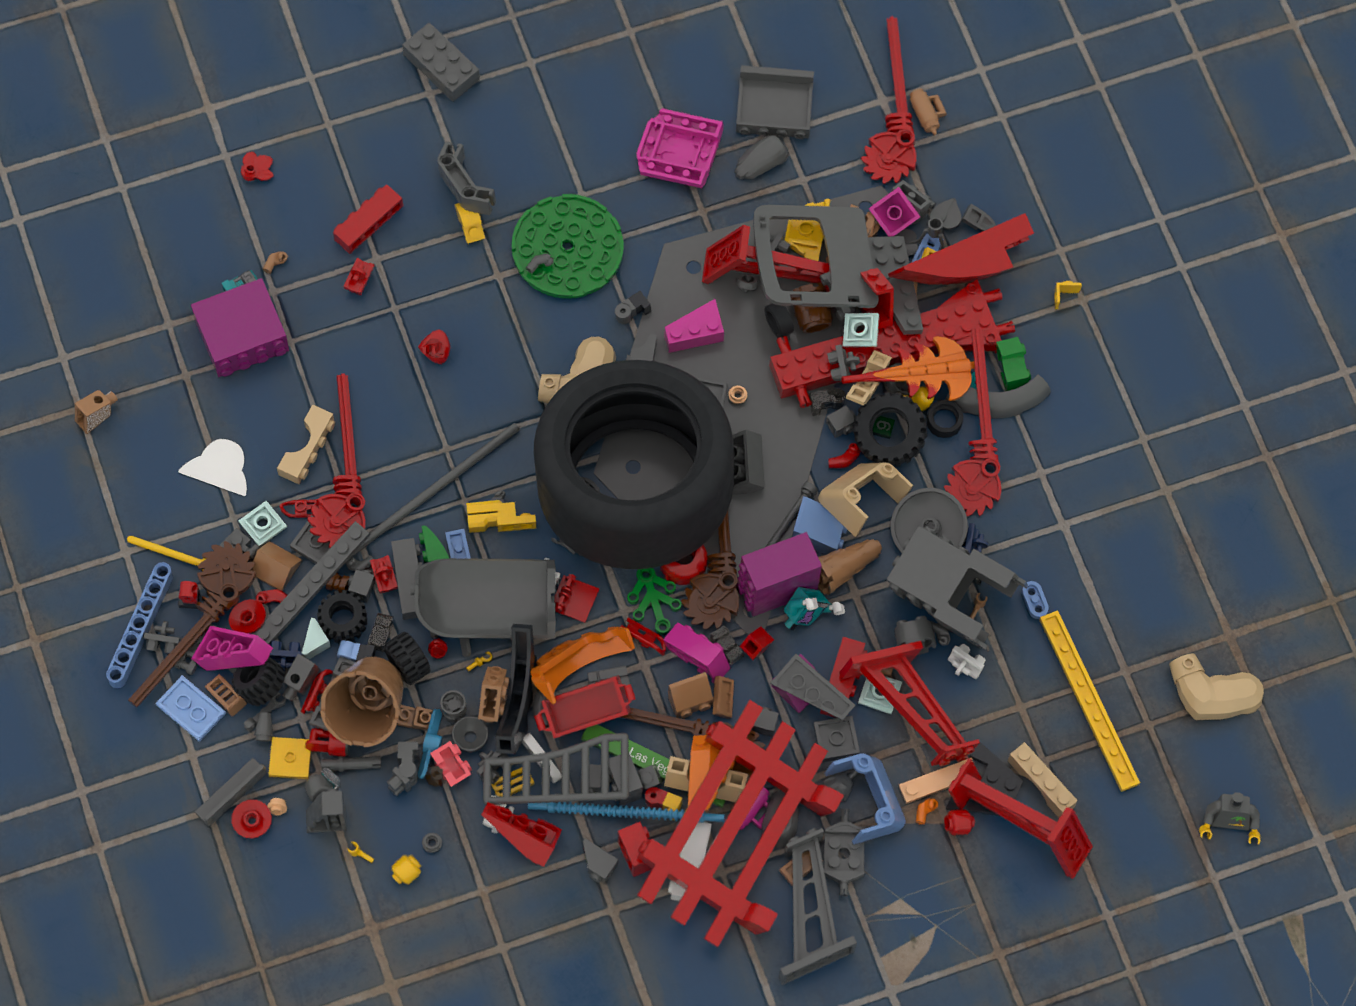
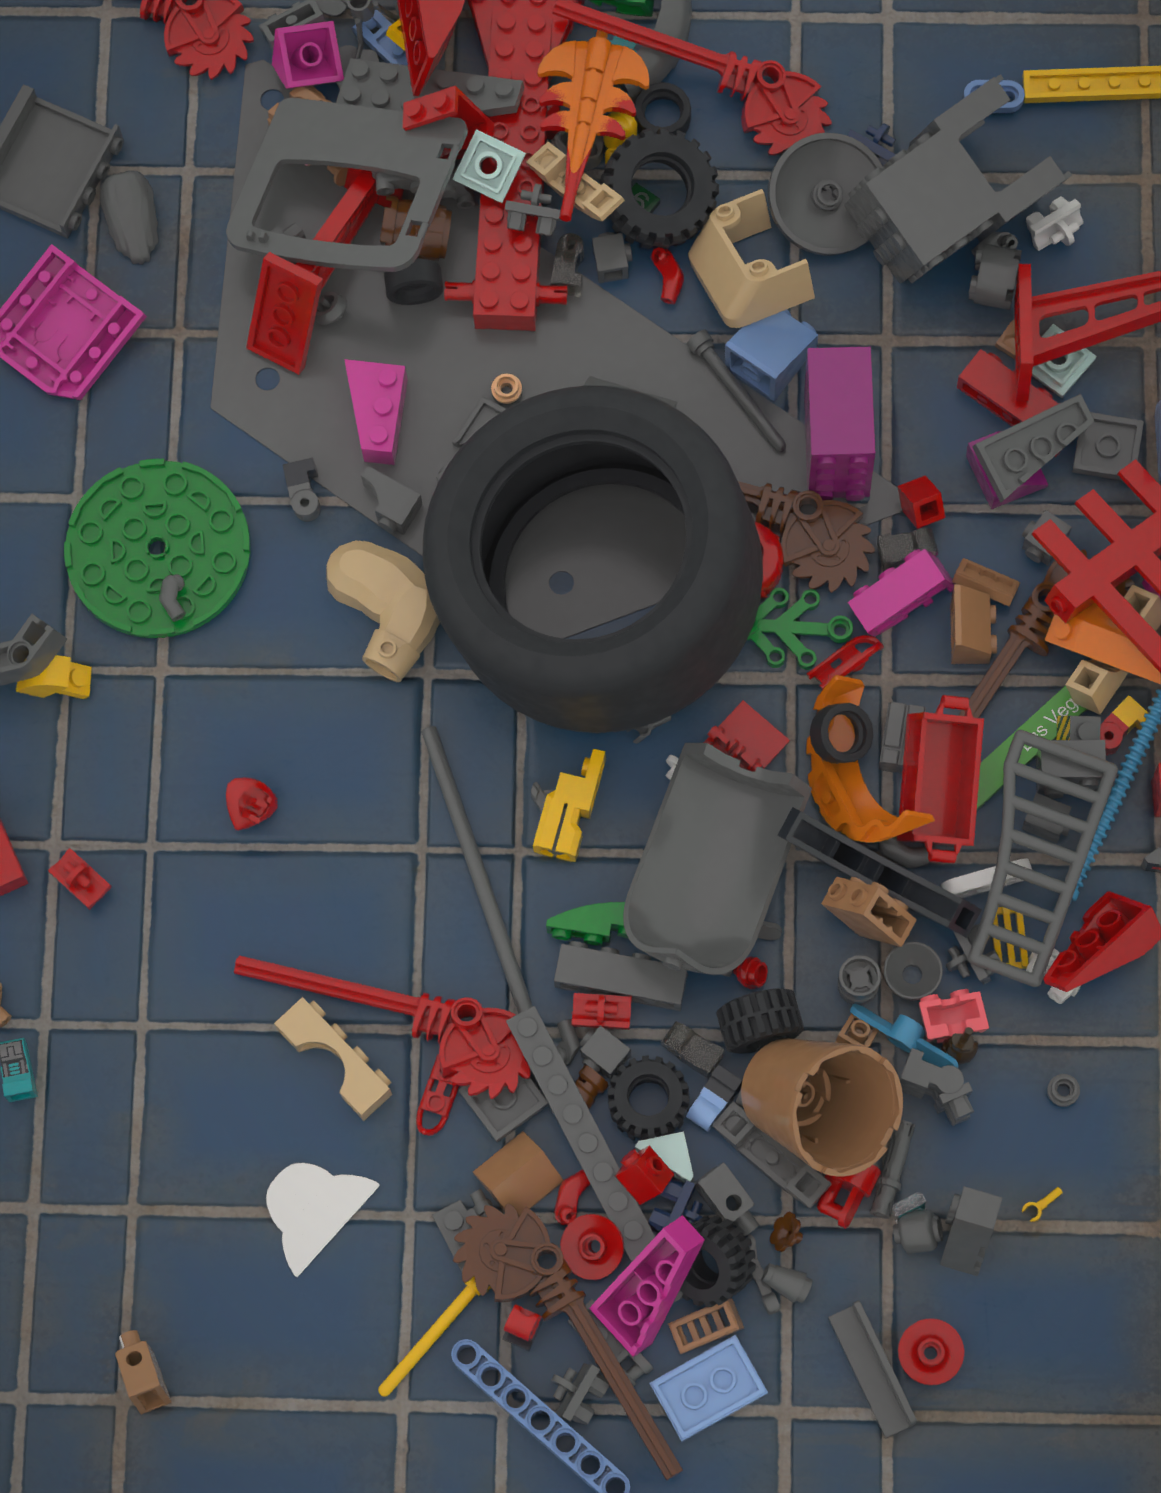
camera: 60 degrees left, 5 degrees up
(240, 327) = (95, 1092): magenta brick -> none
(262, 534) = (455, 1184): light aqua piece -> none
(277, 806) = (924, 1305): light nougat plate -> none
(289, 758) = (848, 1260): yellow plate -> none
(293, 718) = (786, 1232): none -> reddish brown plant
(296, 627) = (644, 1174): none -> red brick
(317, 687) = (750, 1175): red piece -> none
(406, 869) = (1096, 1142): yellow head -> none
(457, 544) = (598, 884): medium blue plate -> none
(478, 661) = (795, 919): yellow hand -> none
(591, 659) = (863, 733): none -> black tyre
(806, 235) = (291, 195): yellow wing -> none
(807, 606) = (893, 406): teal torso -> none
(844, 563) = (839, 320): medium nougat cone -> none

